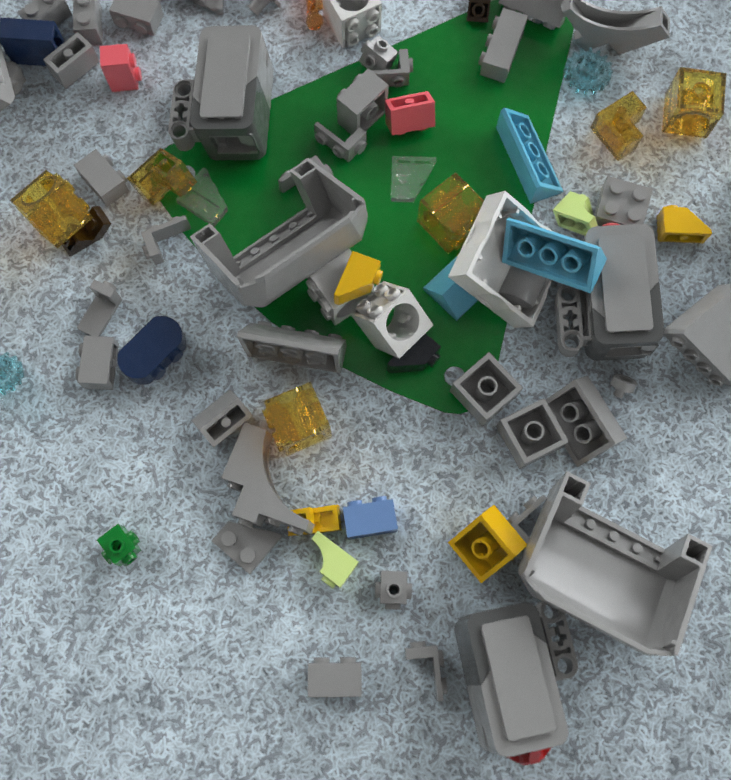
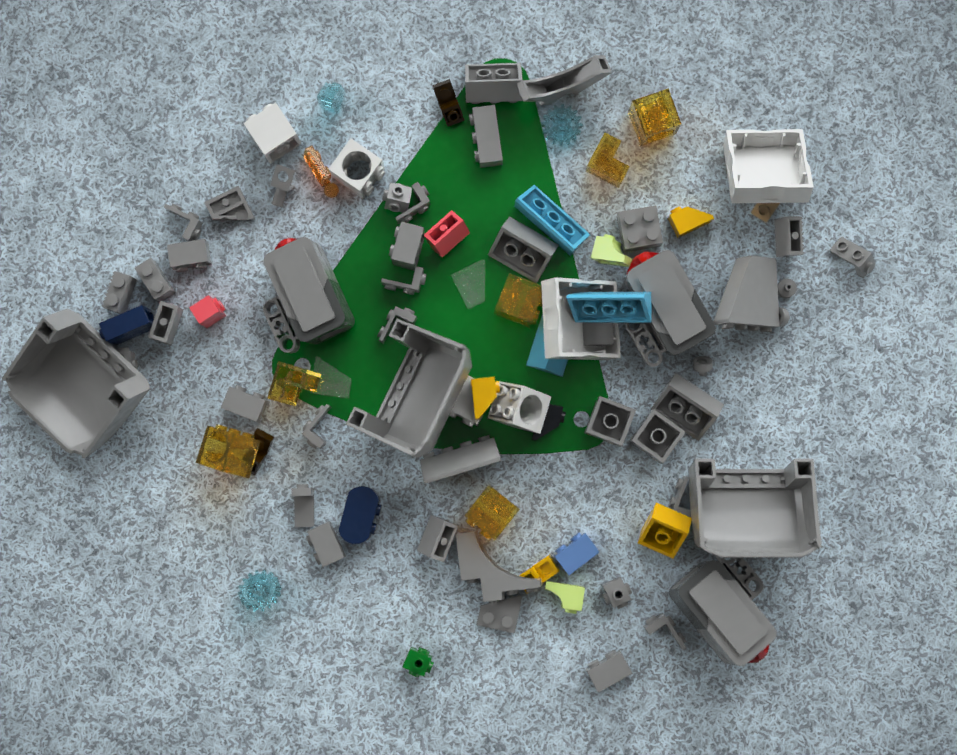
camera: 25 degrees left, 10 degrees up
(482, 164) = (522, 249): none -> light grey slope

